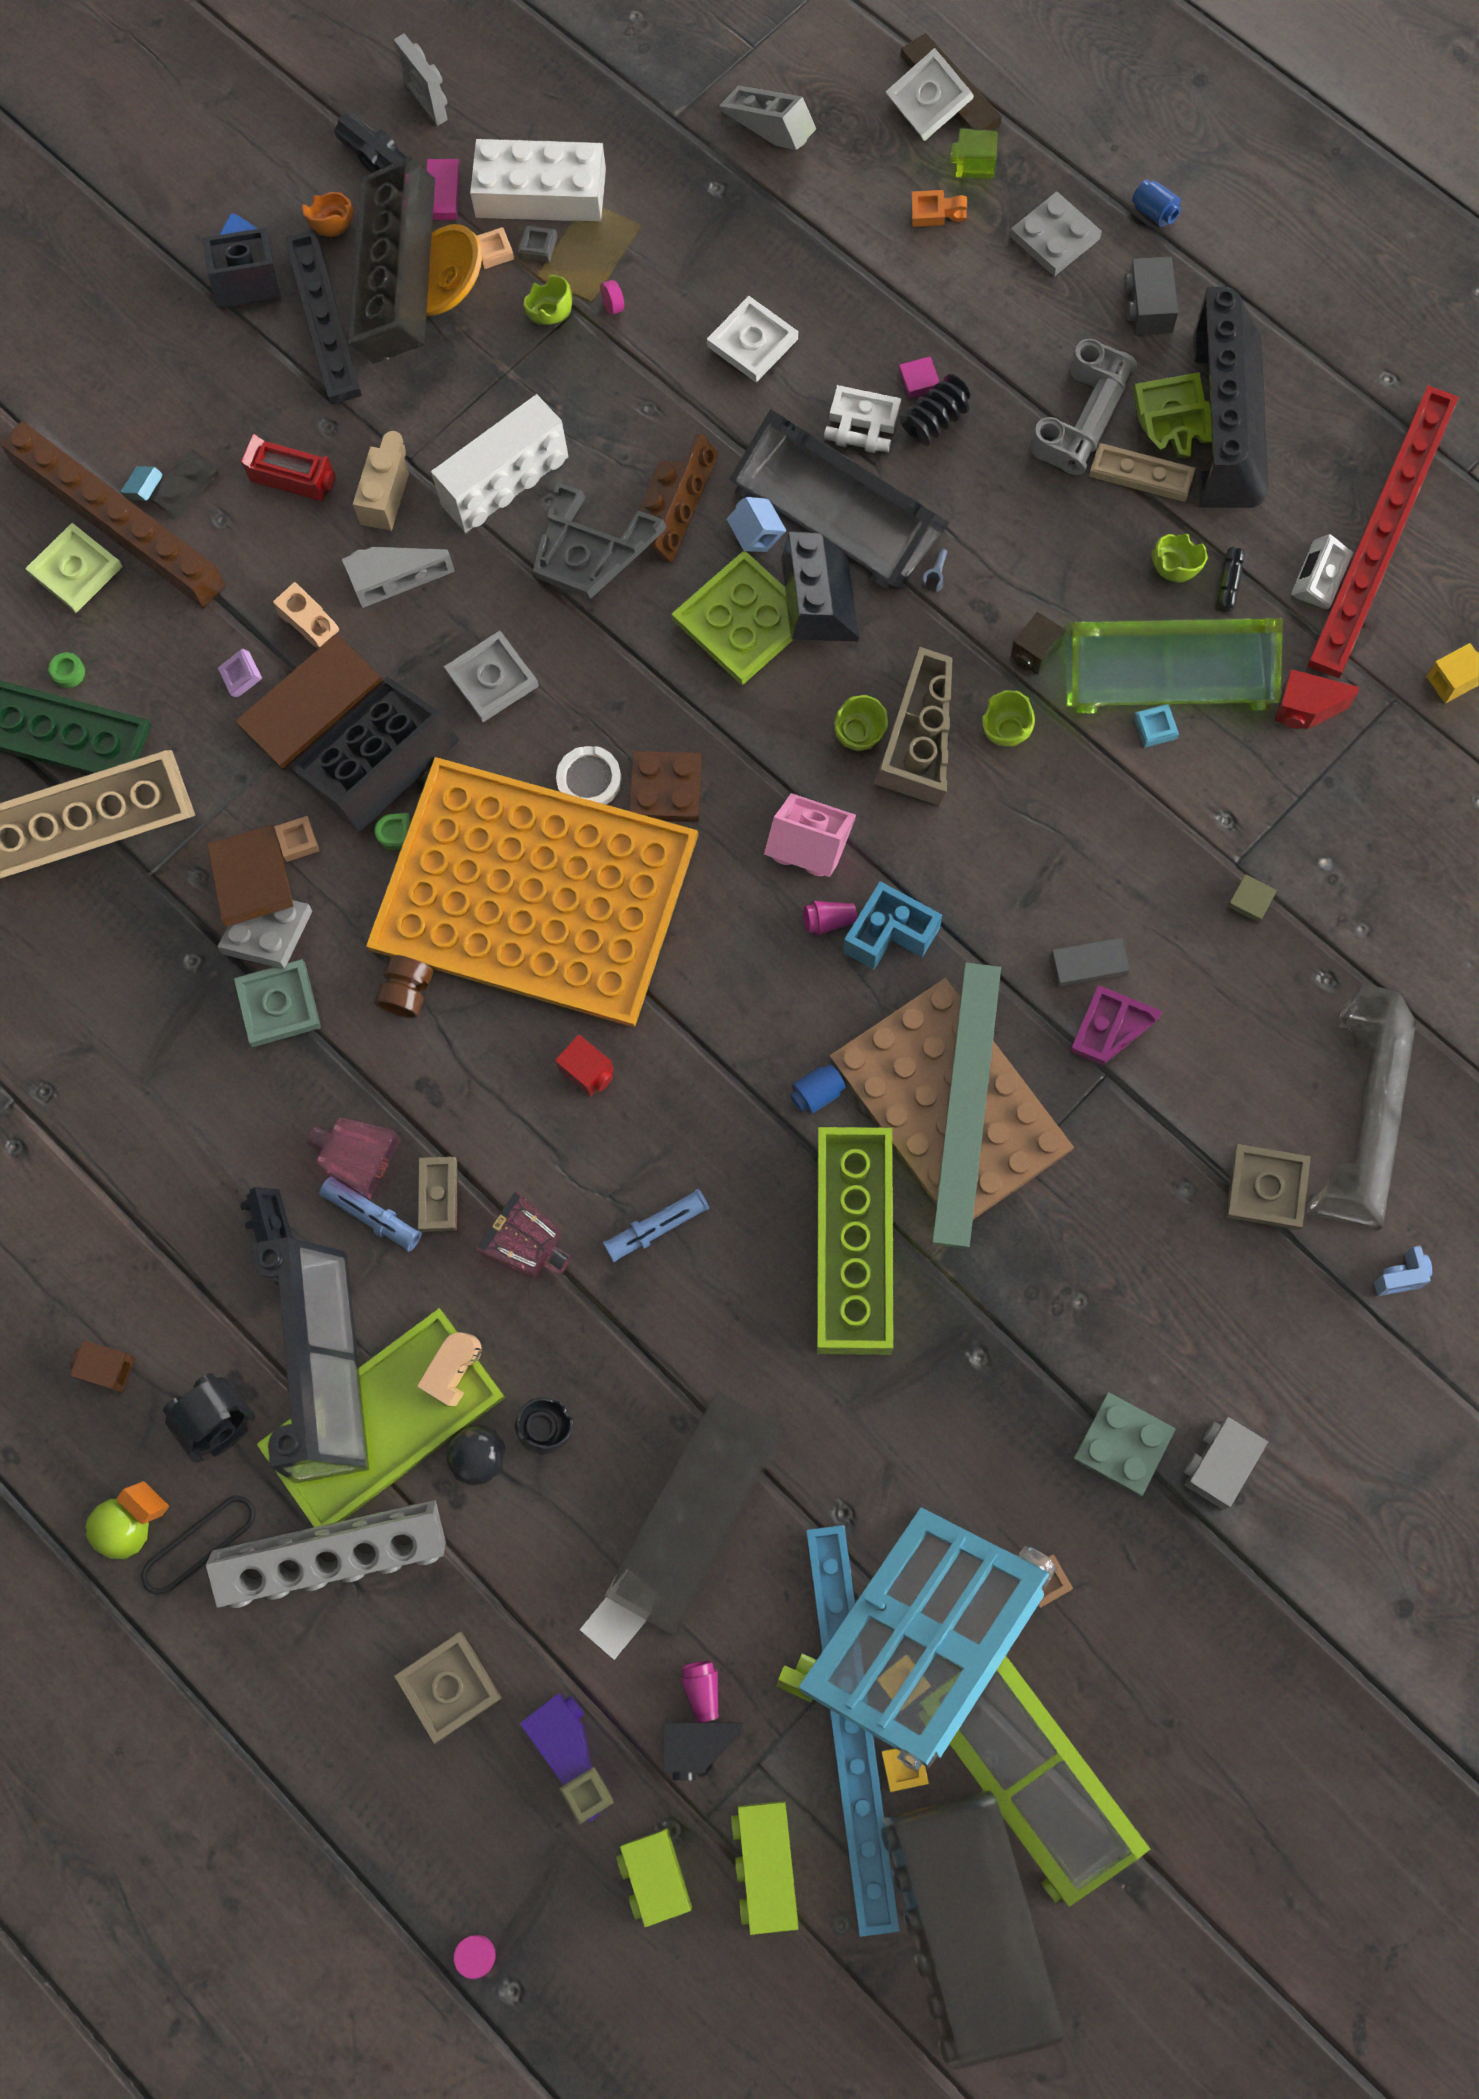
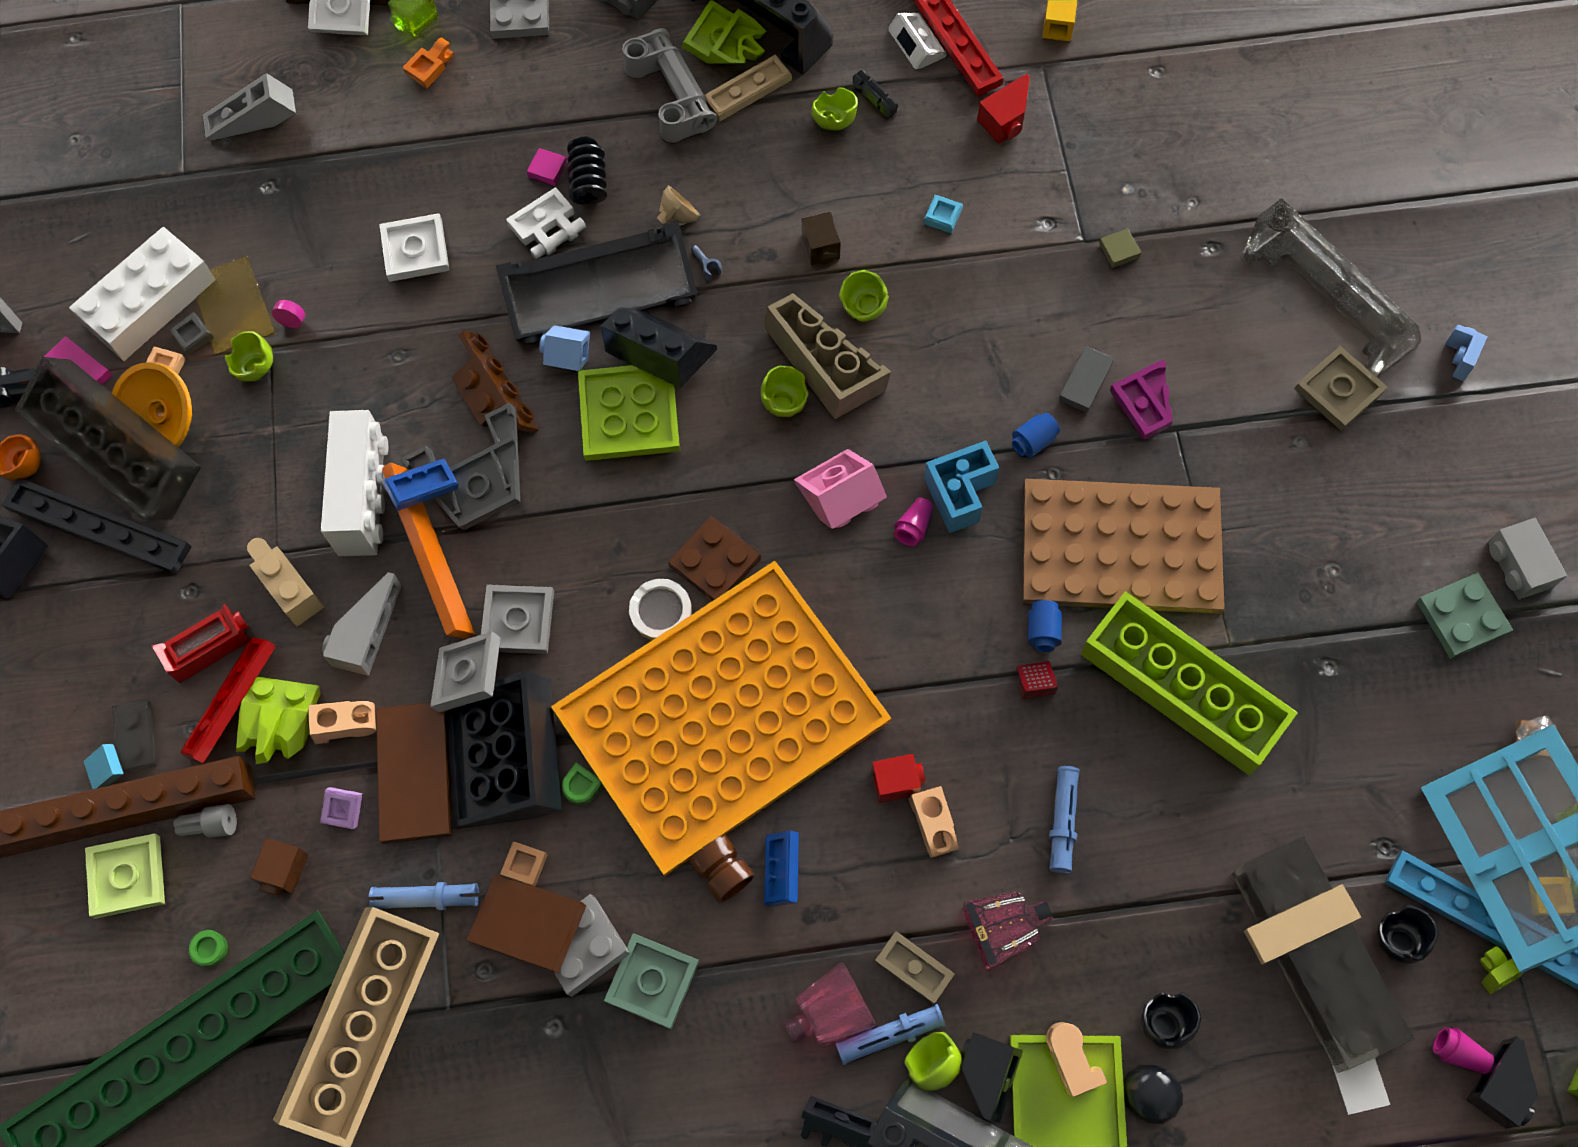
camera: 55 degrees left, 5 degrees down
(157, 590) = (212, 822): none -> light grey piece
(159, 666) = (278, 867): none -> reddish brown brick
(226, 797) = (424, 896): none -> medium blue pin
(260, 523) = (227, 699): none -> red tile
(271, 566) = (275, 717): none -> lime plate
(369, 1262) = (933, 1061): none -> lime hair
(392, 1311) = (990, 1073): none -> black slope
(411, 672) = (465, 672): none -> light grey plate
(440, 1032) = (781, 868): none -> blue plate
(493, 565) = (433, 565): none -> orange tile
(539, 512) = (420, 484): none -> blue plate
(571, 1122) = (934, 821): none -> light nougat leg
(697, 1472) = (1302, 924): none -> tan tile
(764, 1117) = (1036, 680): none -> dark red slope
(767, 1576) = (1407, 934): none -> black hair
(966, 507) = (676, 208): none -> tan piece
(966, 1106) = (1140, 533): sand green tile -> none
(995, 953) = (1035, 435): none -> blue brick
(1173, 662) = (909, 167): clear light blue windscreen -> none

